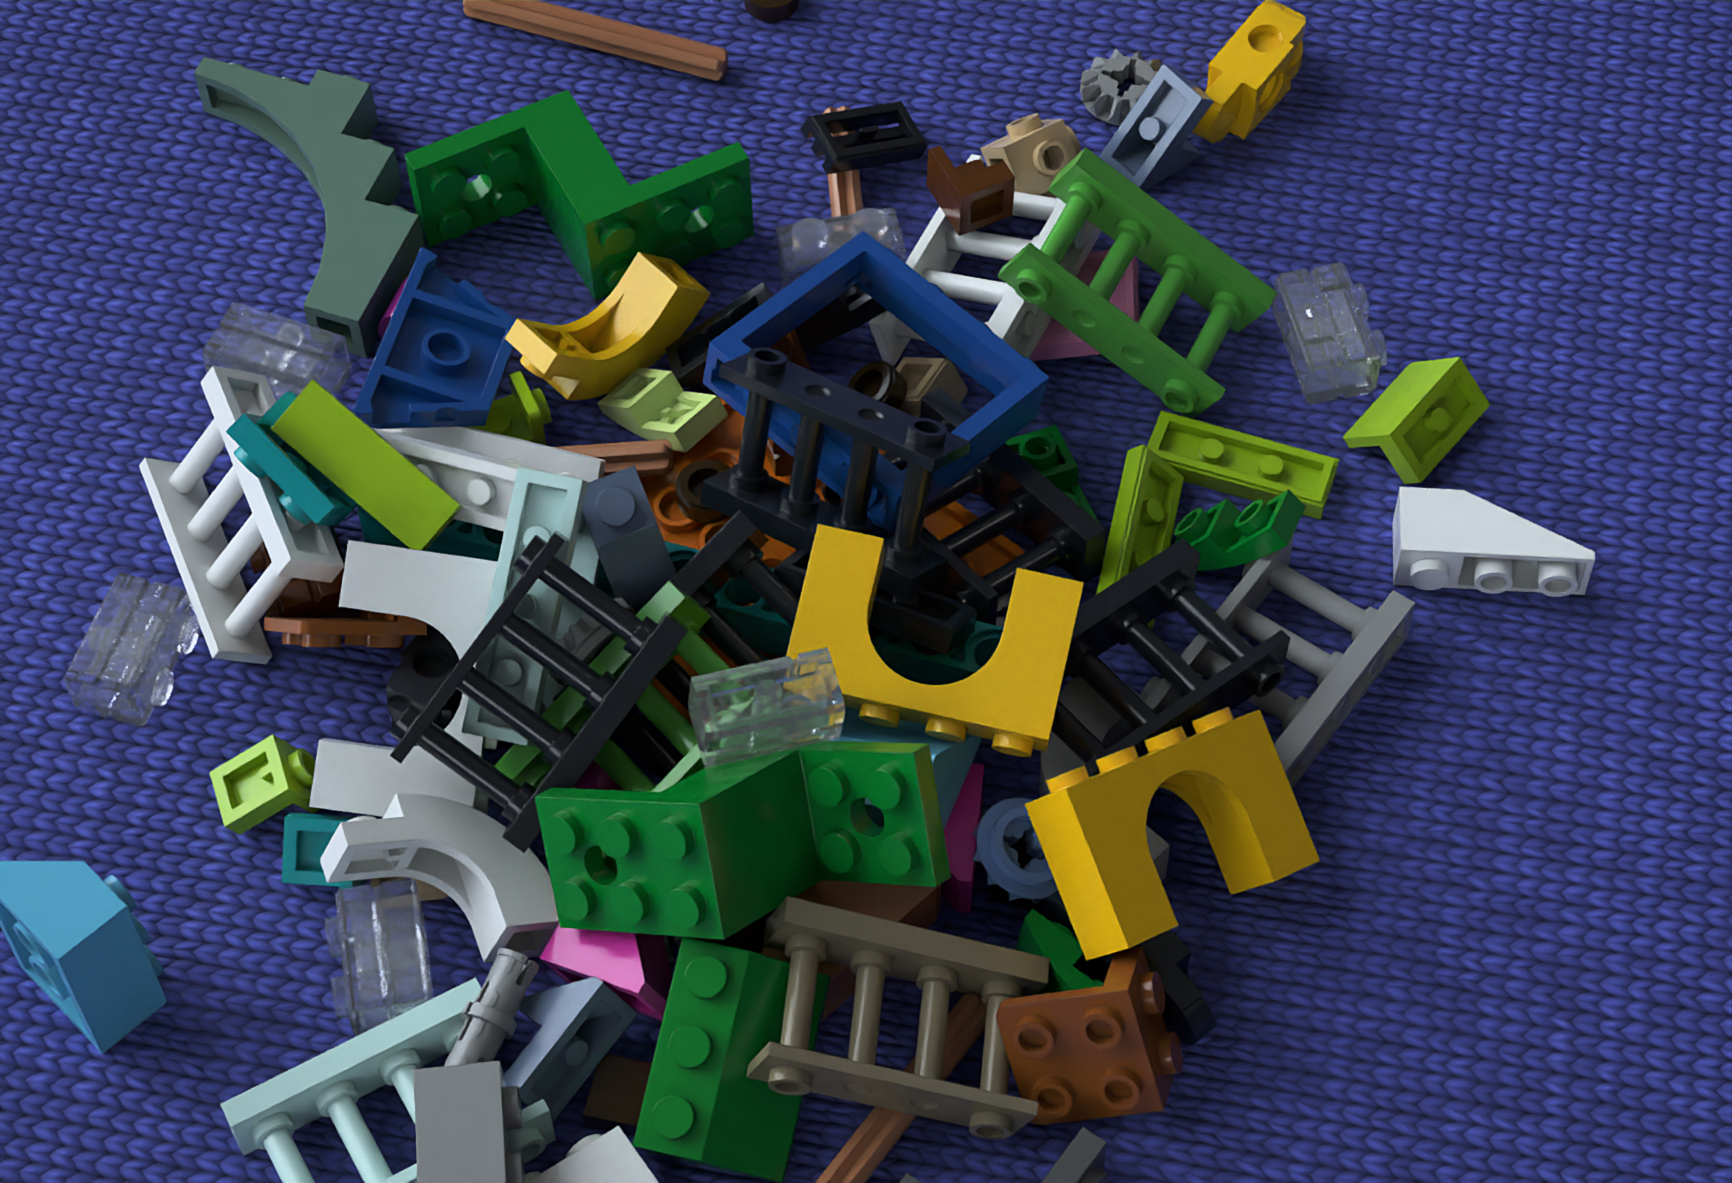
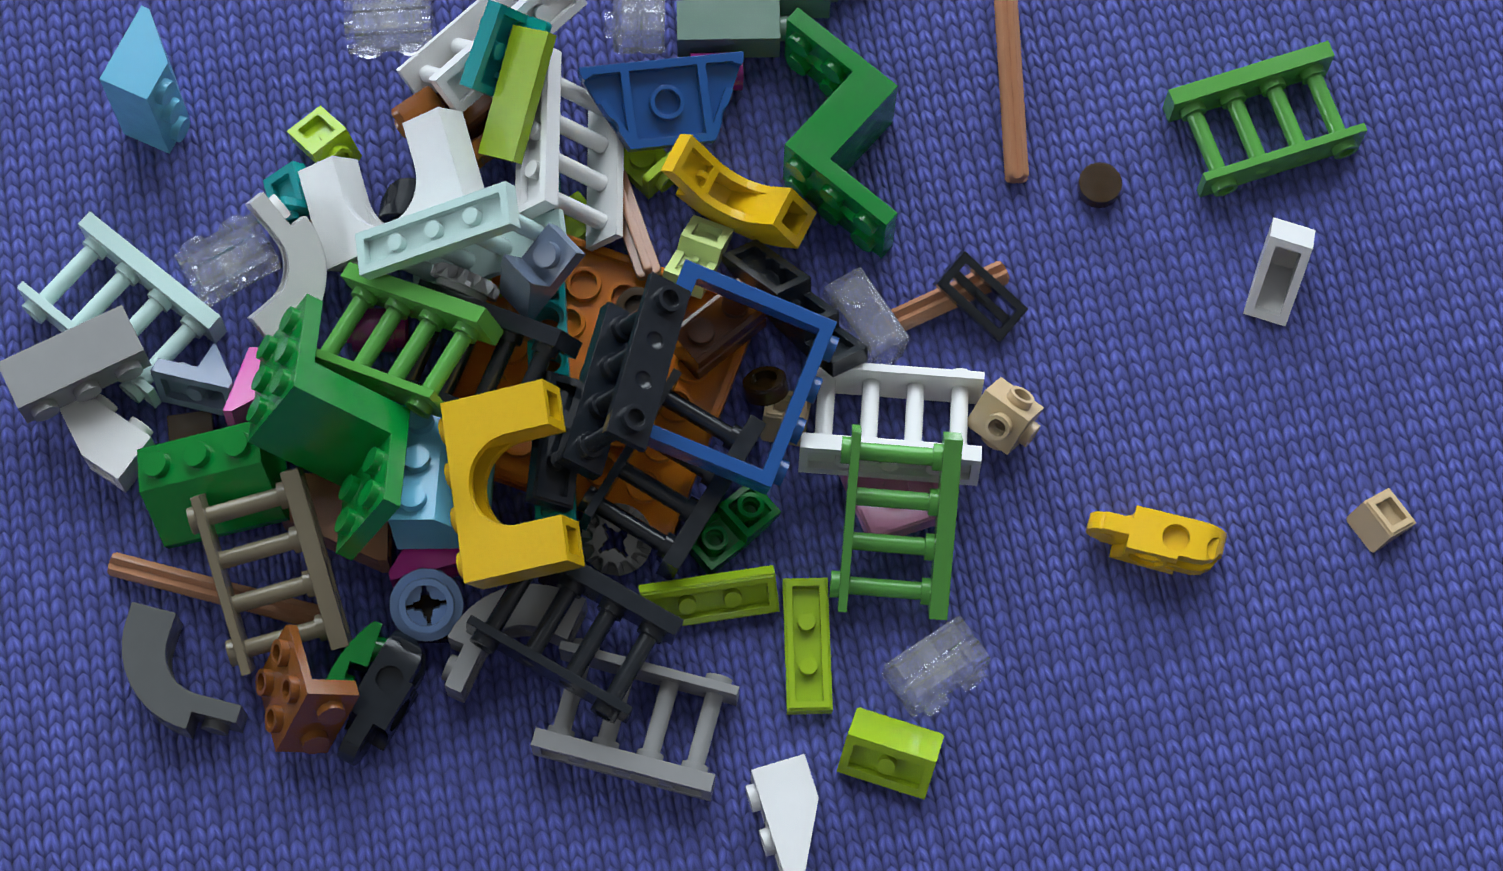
camera: 65 degrees right, 15 degrees up
(493, 1012) = (190, 335): light grey pin -> none
(604, 694) = (361, 300): black fence -> none
(766, 707) = (396, 400): clear brick -> none
(970, 192) = (938, 380): reddish brown panel -> none
(1098, 834) = (423, 632): yellow arch -> none
(1100, 85) = (1101, 471): light grey gear -> none
(1155, 132) = (1069, 493): sand blue slope -> none
(1235, 537) = (727, 656): green slope -> none

